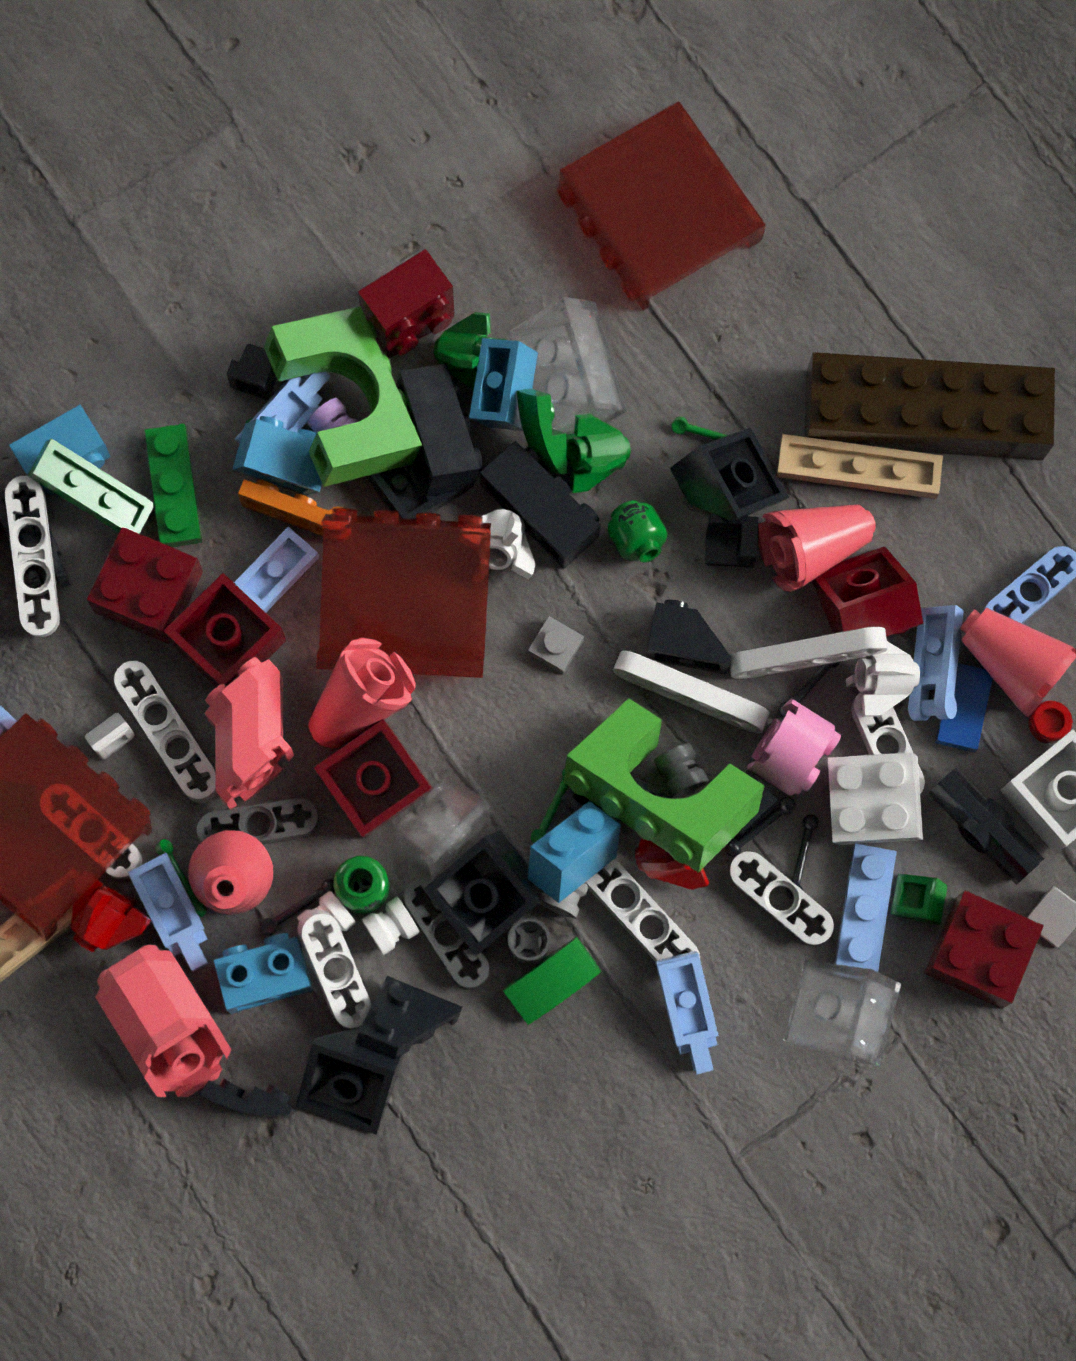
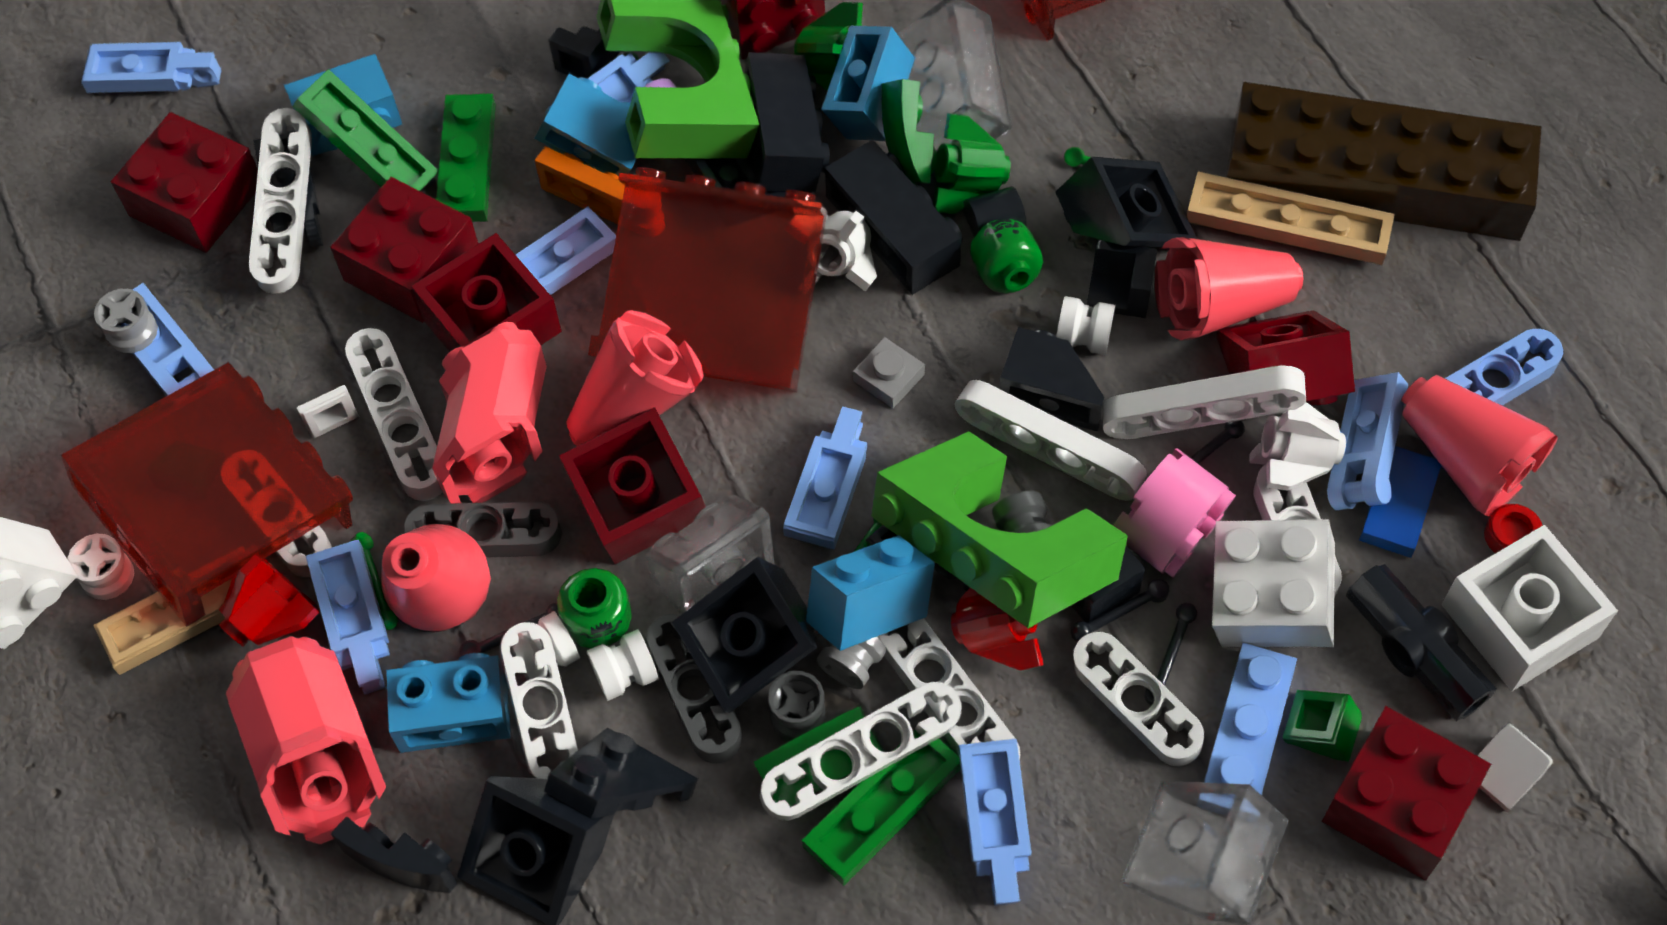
camera: 15 degrees right, 15 degrees down
(523, 750) = (828, 483): none -> light blue hinge
(587, 980) = (857, 744): none -> white beam
(603, 1008) = (879, 809): none -> green plate
(621, 488) = (993, 206): none -> black brick
(707, 587) = (1086, 324): none -> white wheel

